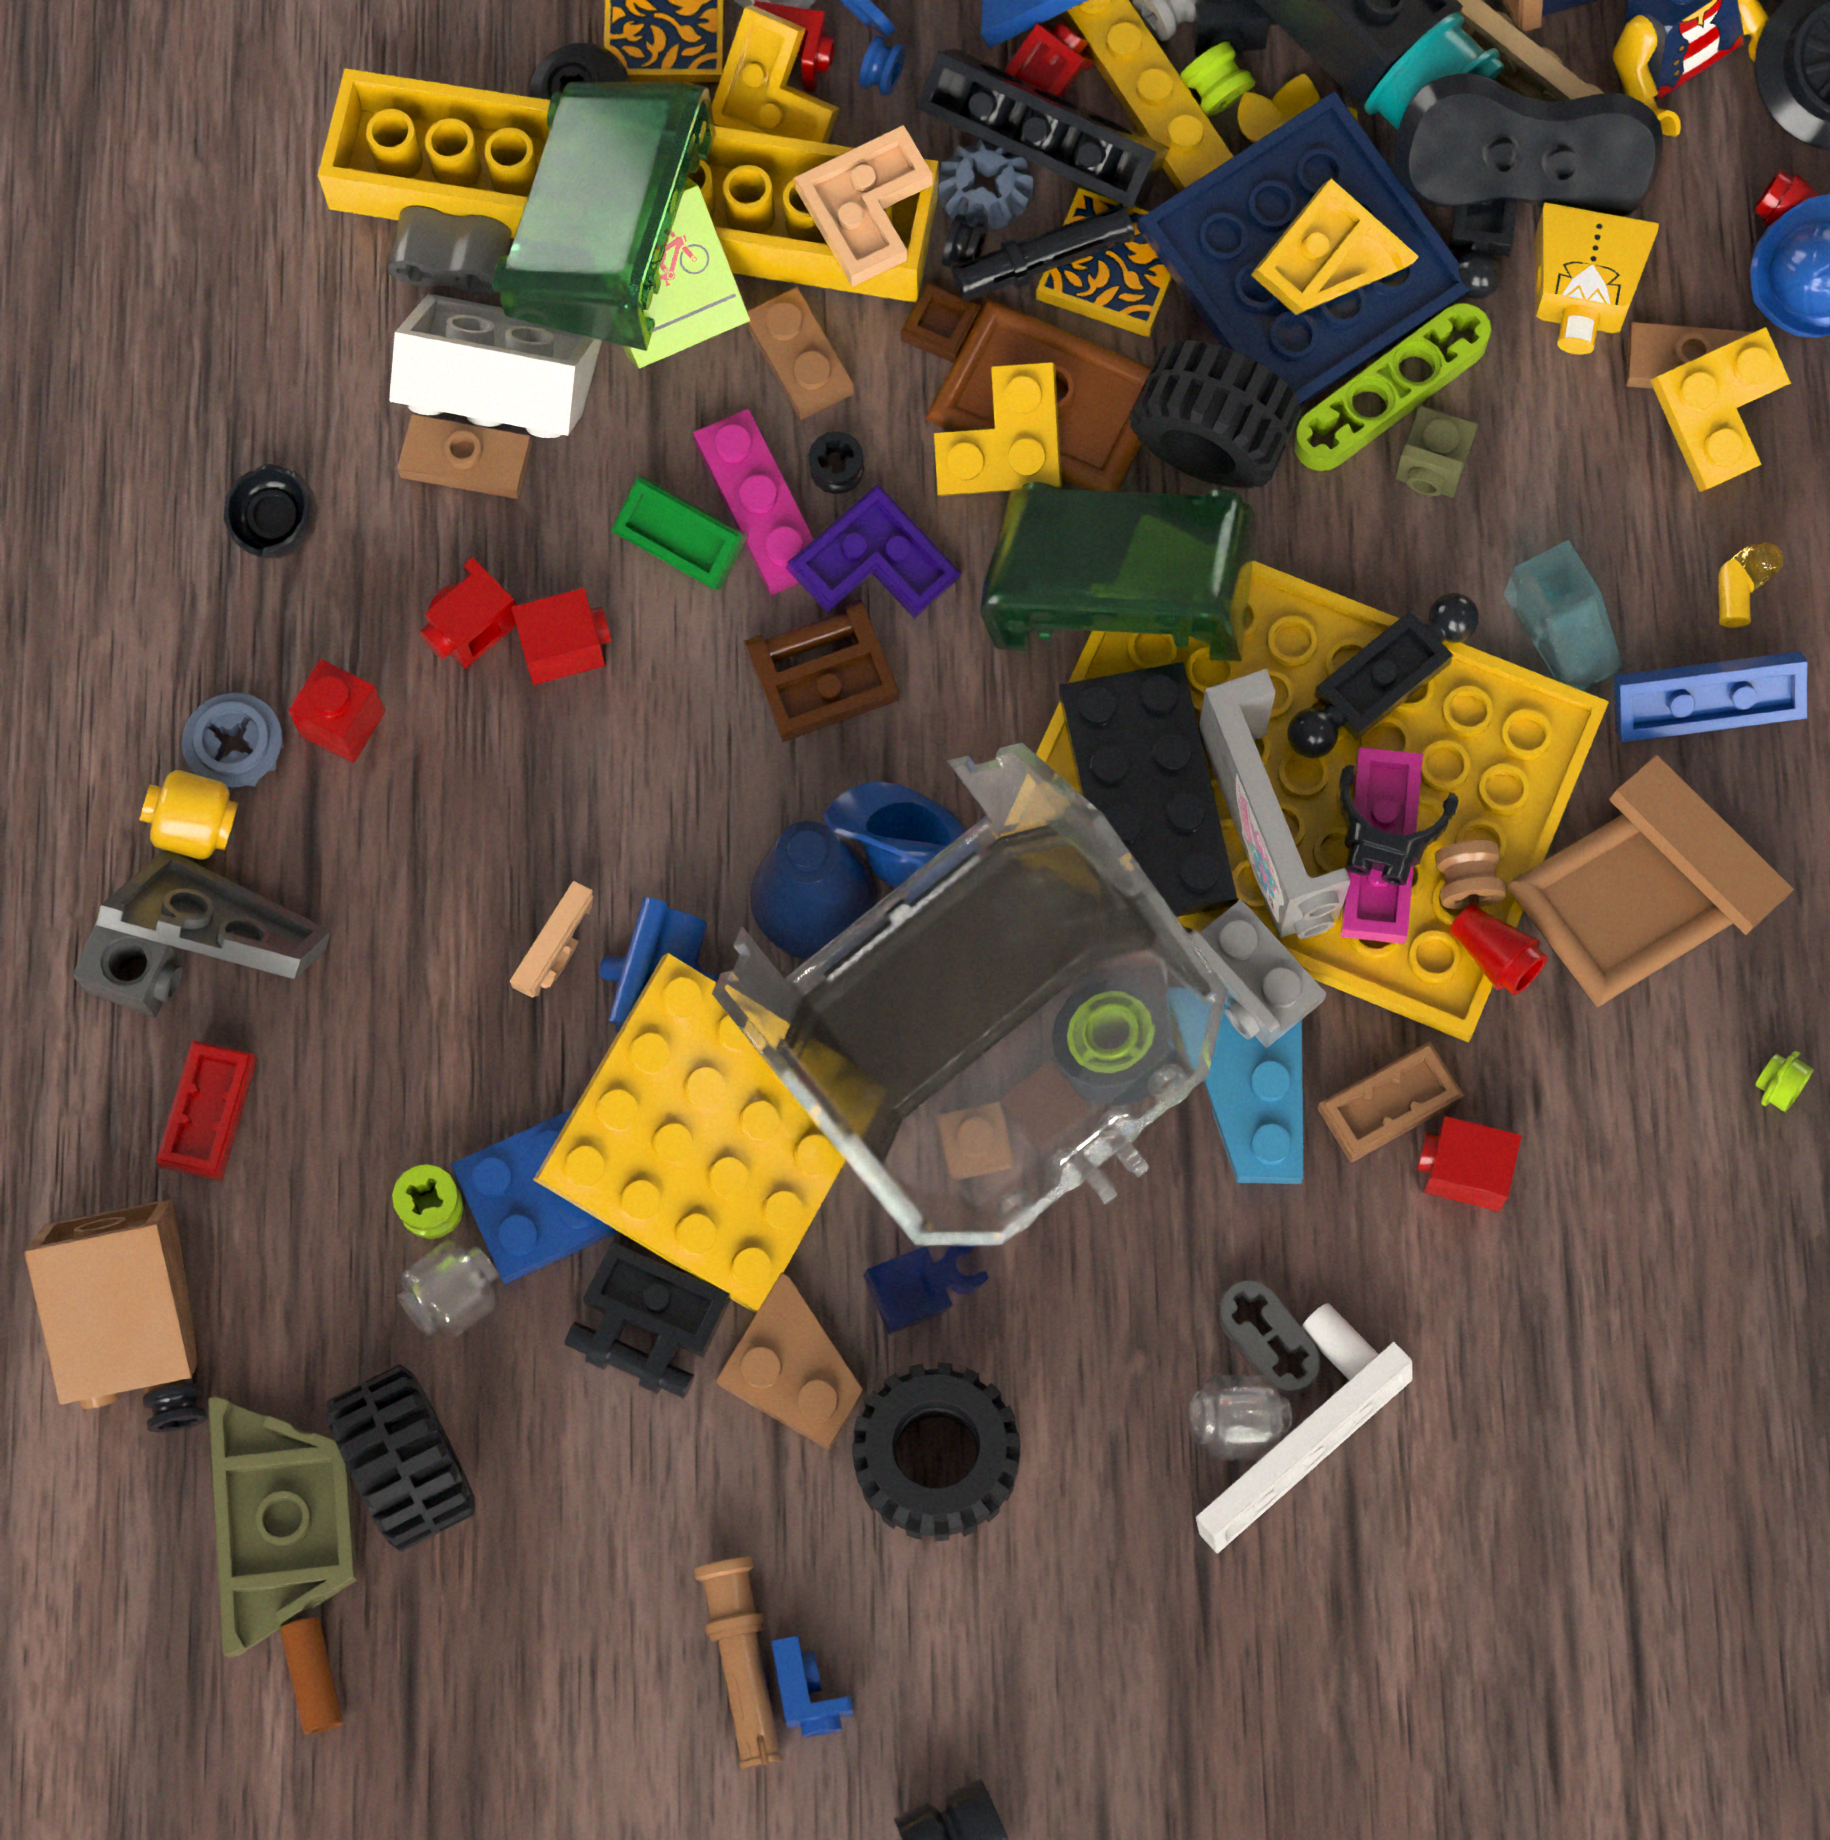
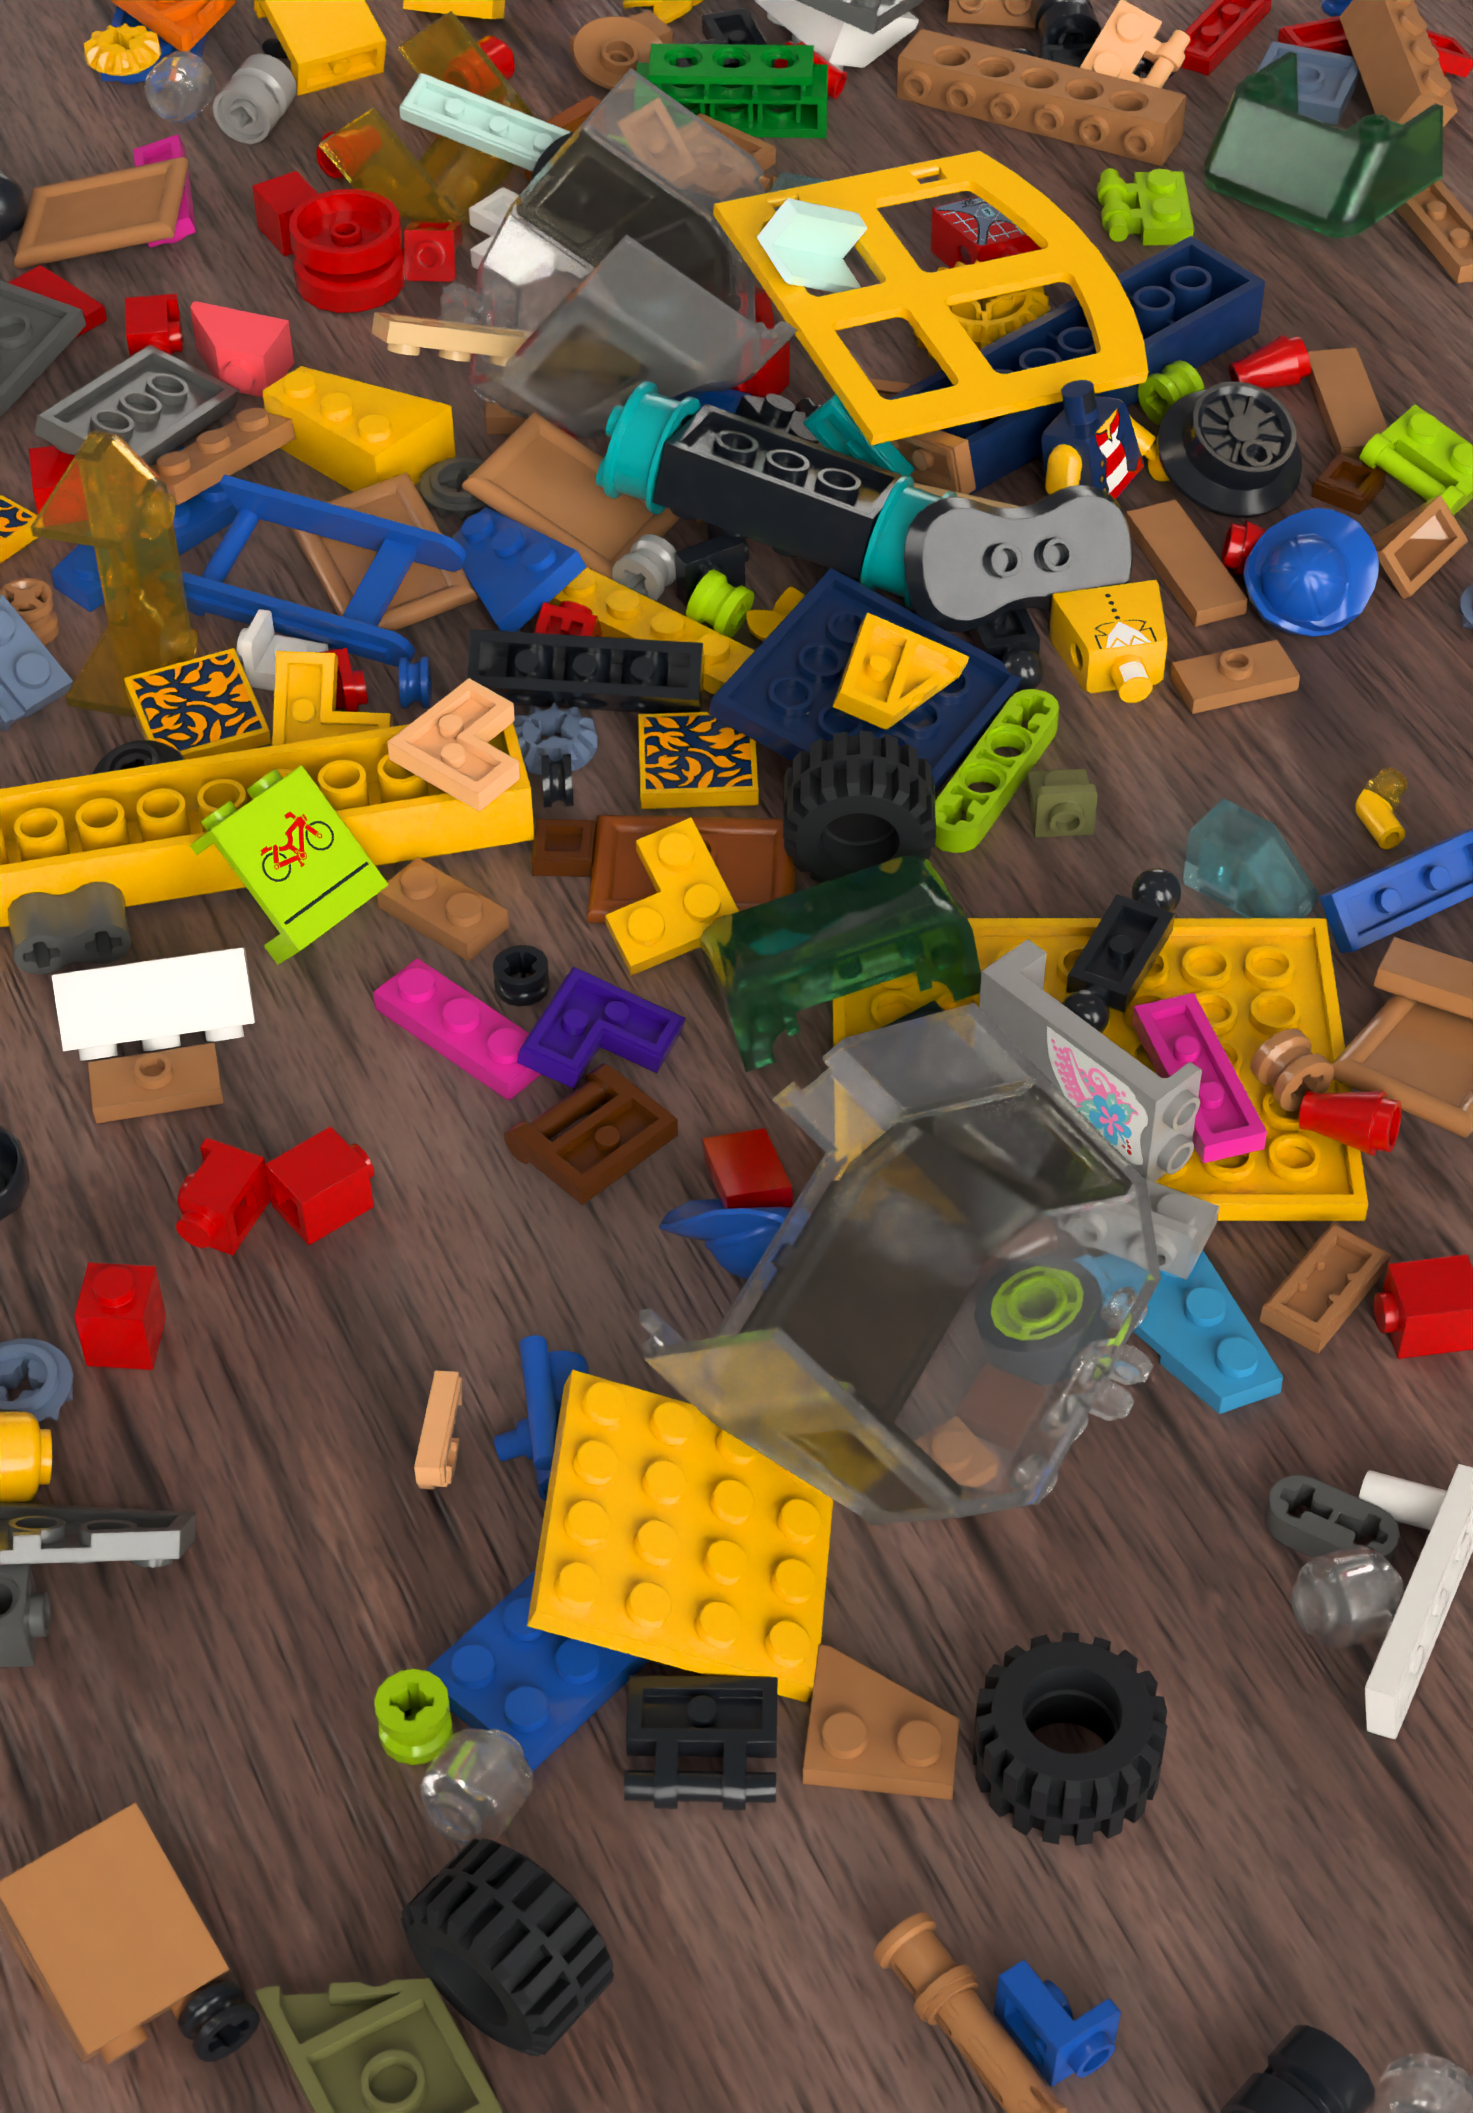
camera: 25 degrees left, 25 degrees down
(206, 1110) = (131, 1721): red plate -> none
(605, 207) = (219, 815): clear green windscreen -> none
(679, 532) = (398, 1071): green tile -> none
(810, 889) = (676, 1273): dark blue cone -> none
(916, 1287) = (964, 1607): clear blue plate -> none
(928, 787) = (747, 1170): none -> red tile
(1039, 254) = (617, 770): black pin -> none
(1383, 851) = (1218, 1058): black helmet -> none
(1704, 400) = (1271, 695): yellow plate -> none
(1719, 190) = (1186, 563): none -> medium nougat tile

